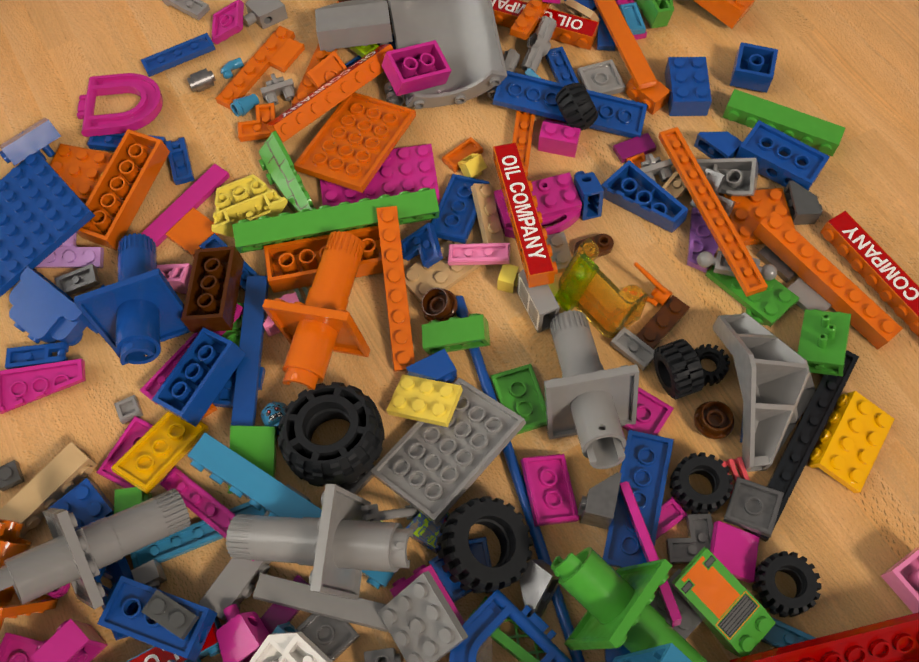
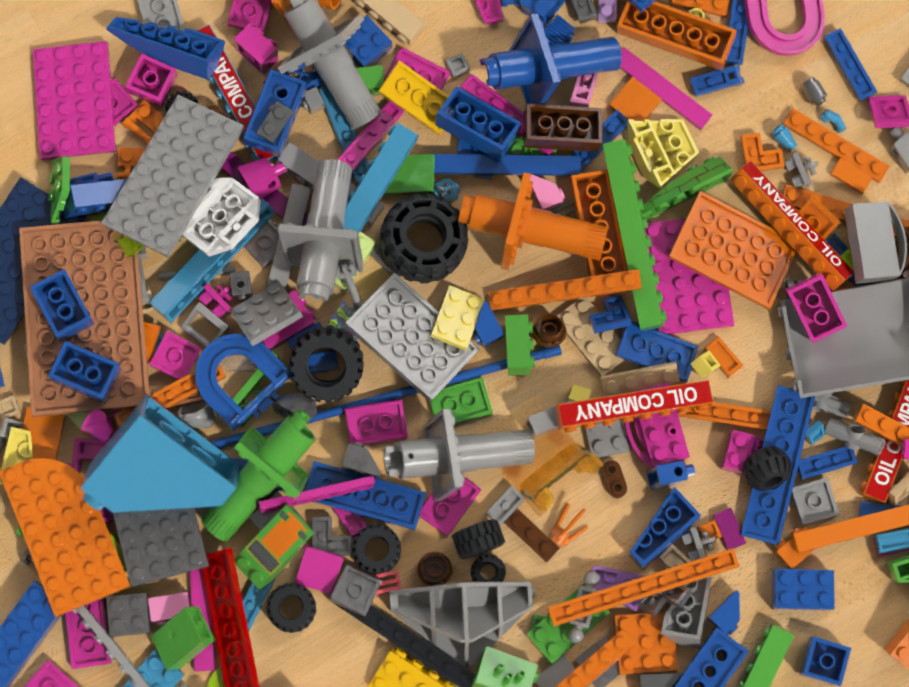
camera: 80 degrees right, 15 degrees up
(479, 254) = (600, 367): bright pink tile -> none
(576, 282) = (564, 453): clear neon green plate -> none

